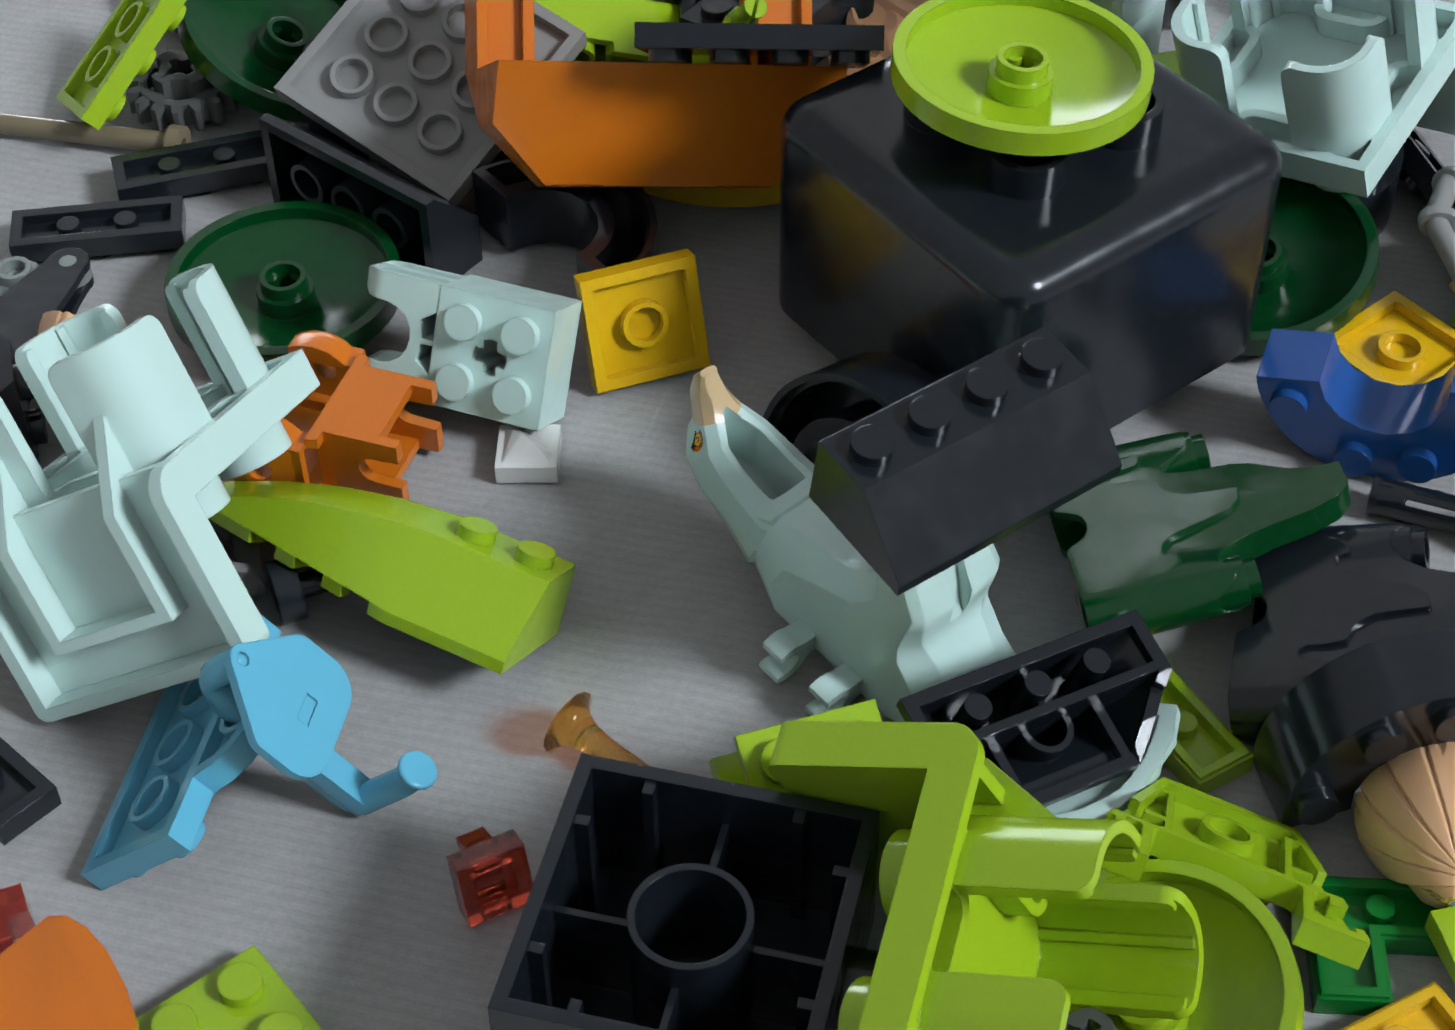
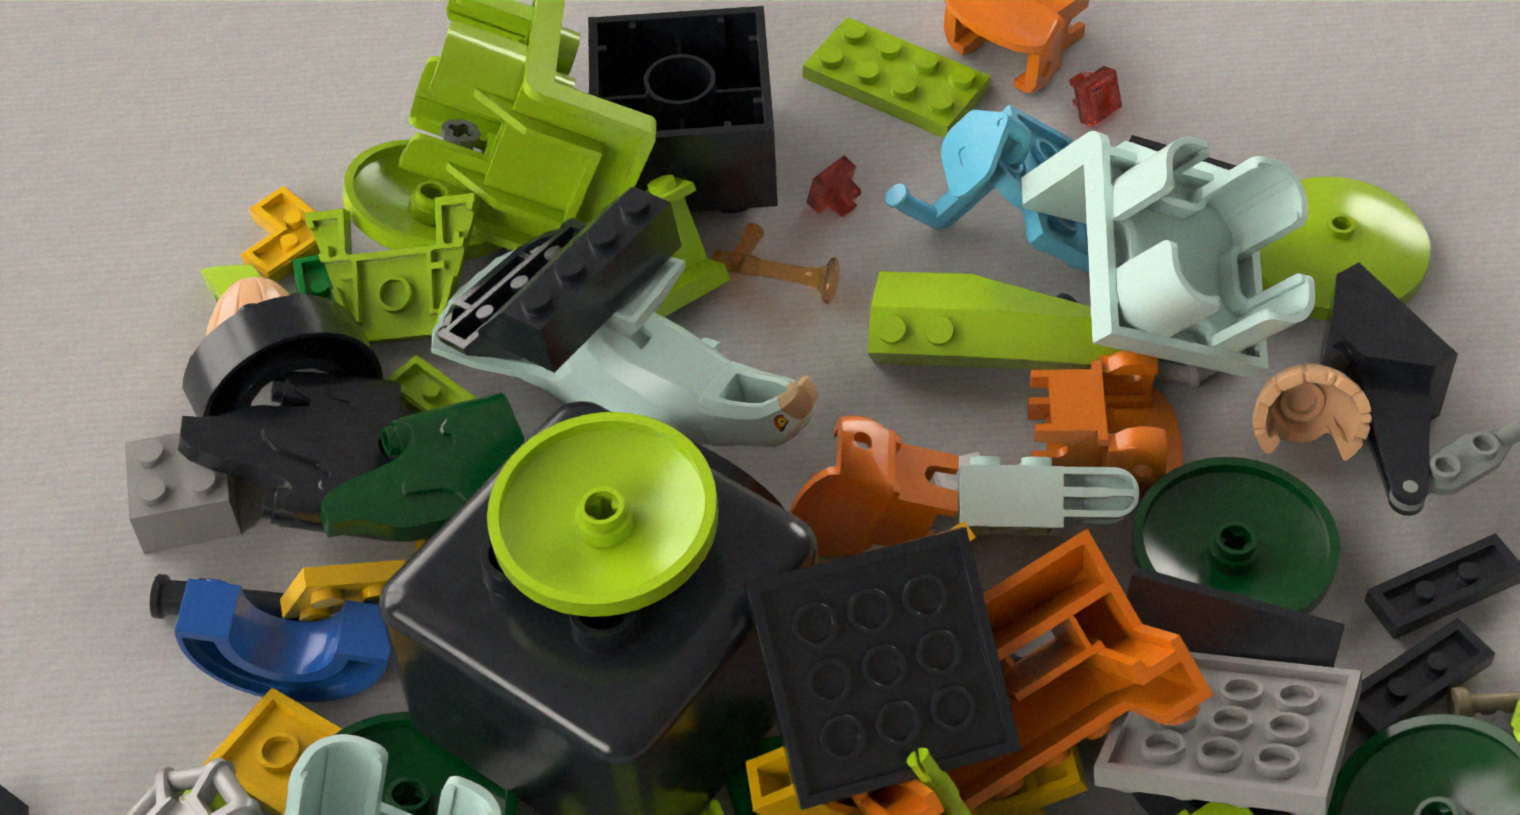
camera: 165 degrees right, 5 degrees up
(645, 377) = (874, 492): none -> orange piece
(1325, 418) = (325, 589): none -> yellow plate

